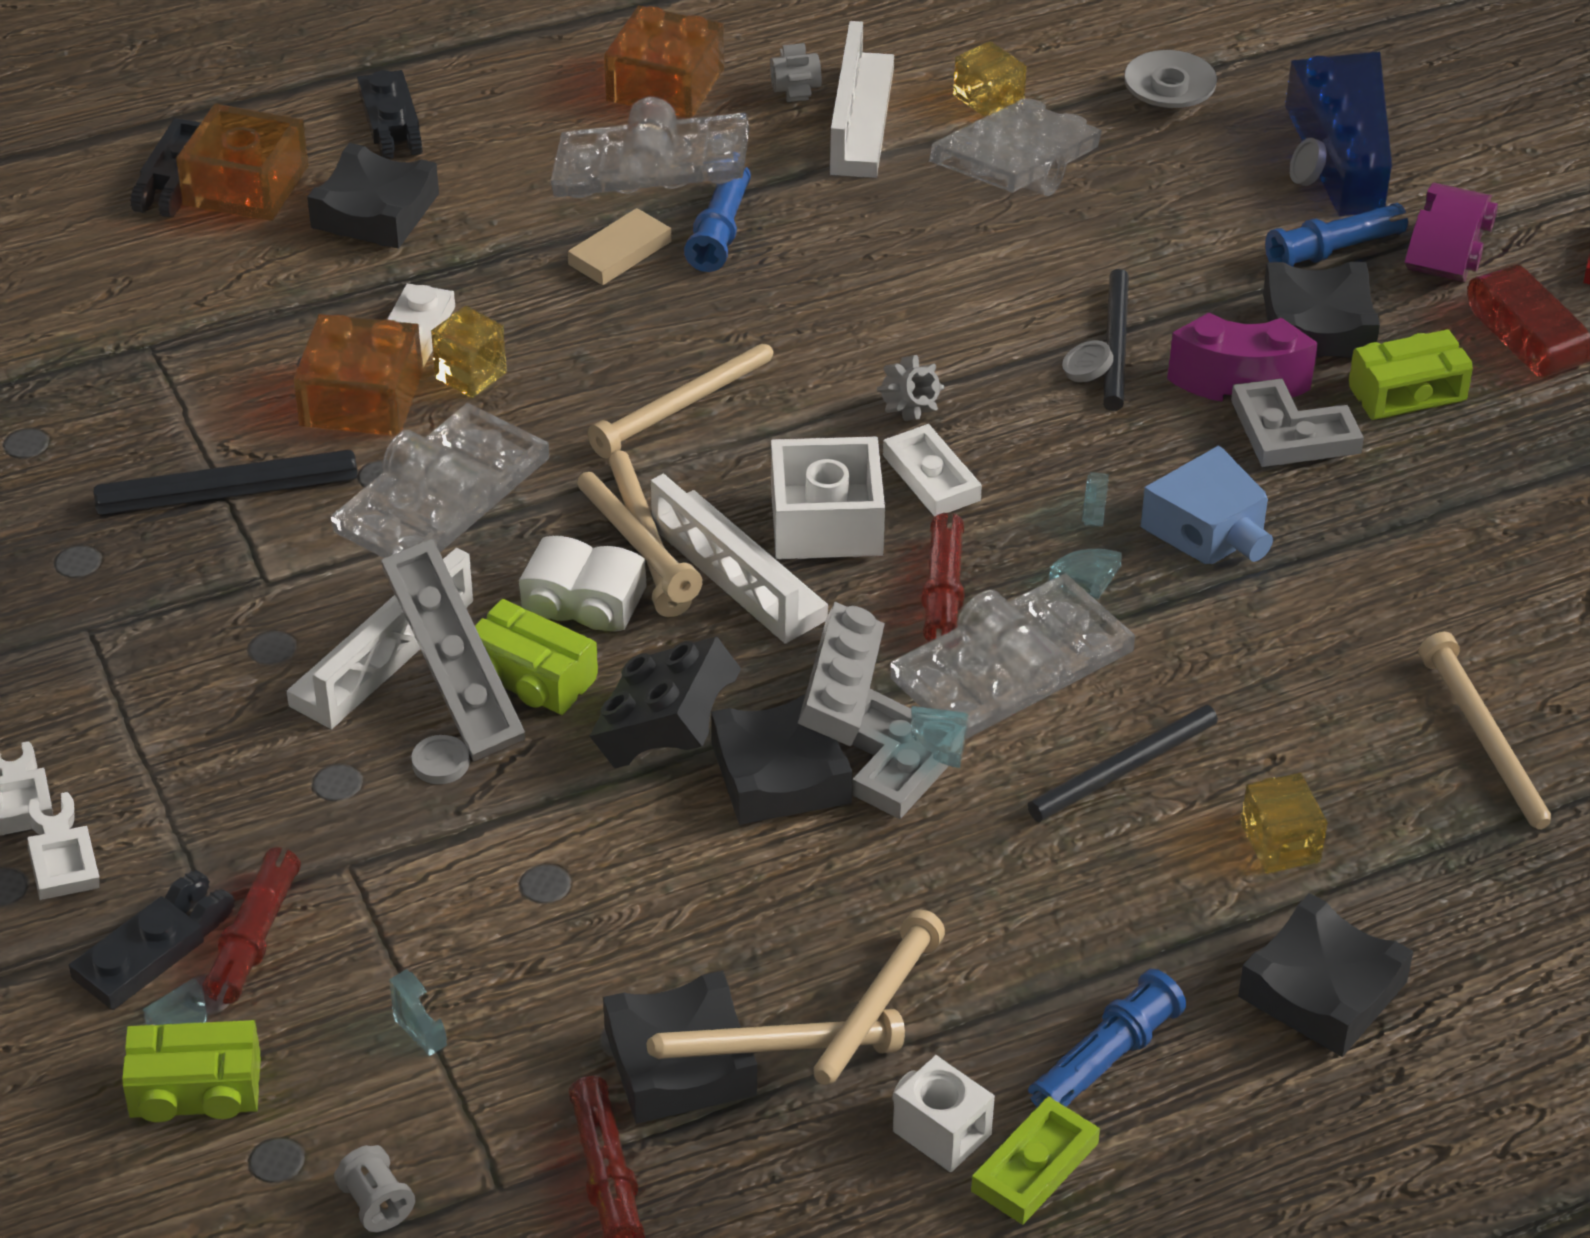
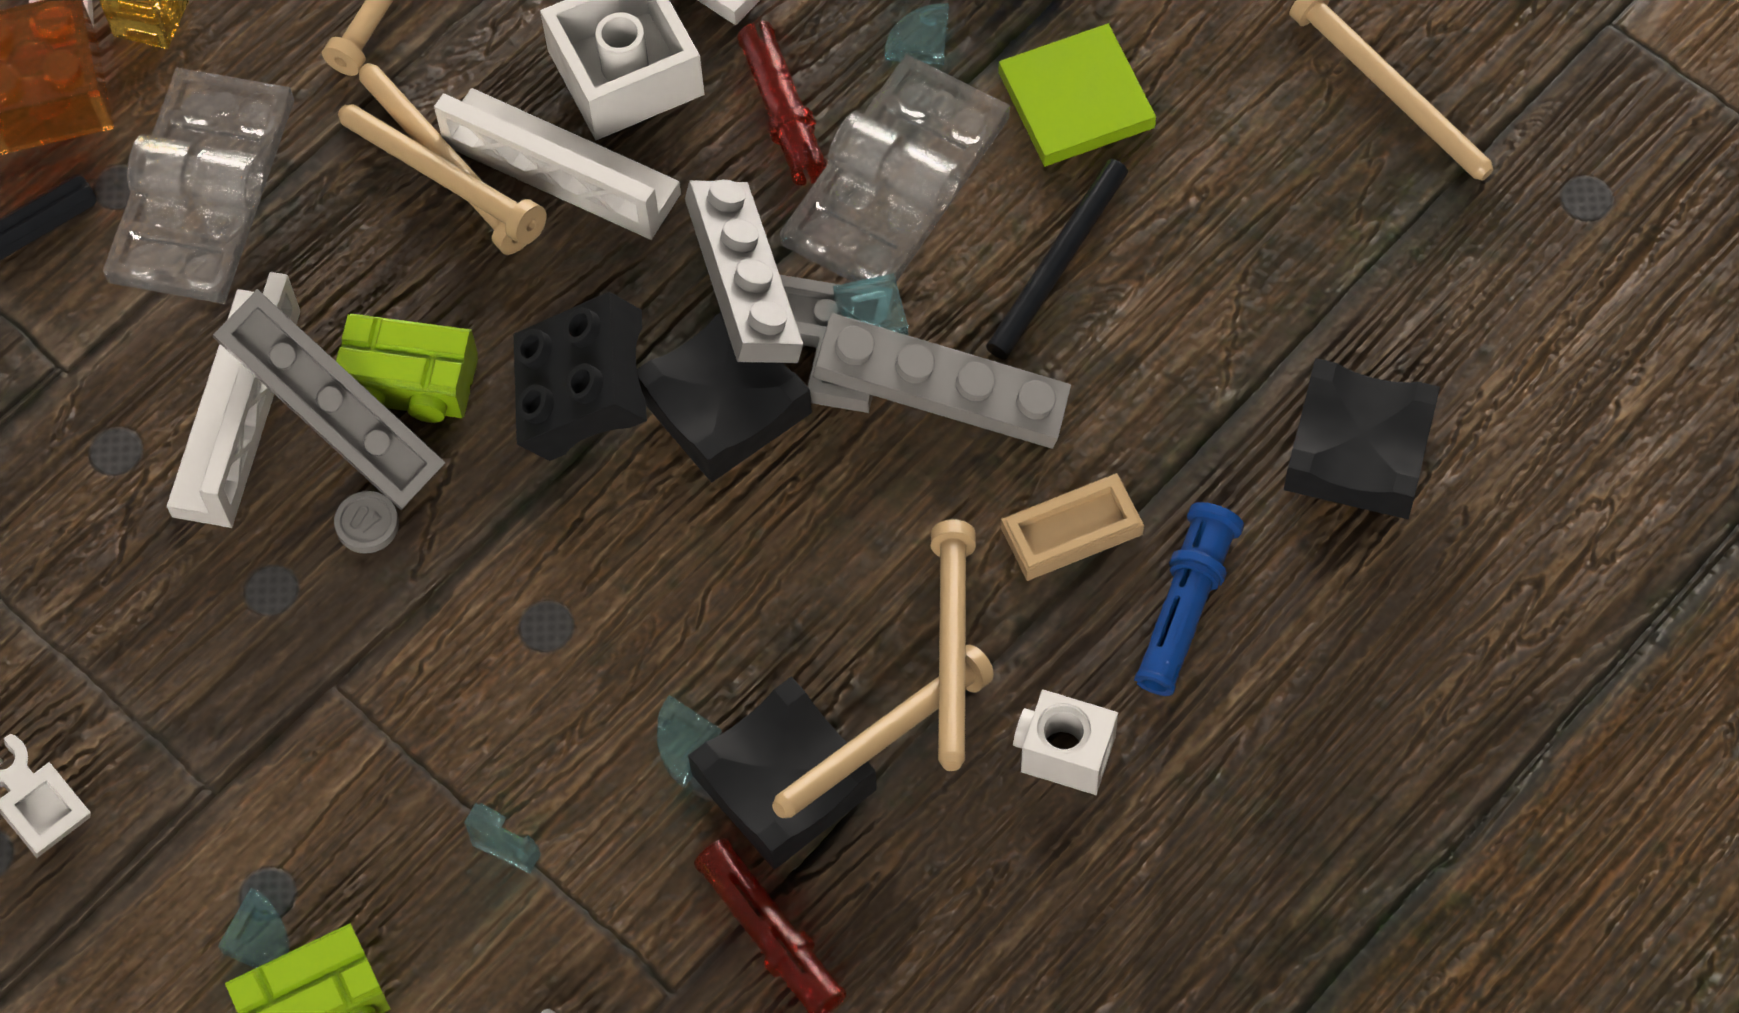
camera: 20 degrees left, 20 degrees up
(152, 940) = (180, 863): black hinge -> none
(244, 941) = (281, 825): clear red pin -> none
(583, 583) = (413, 253): white brick -> none
(608, 982) = (678, 735): none -> clear light blue tile
(973, 810) = (942, 380): none -> light grey plate
(1034, 961) = (1072, 526): none -> tan tile
(1035, 1160) = (1176, 756): lime plate -> none
(1201, 652) = (1076, 94): none -> lime tile
(1283, 823) = (1247, 274): clear yellow brick -> none

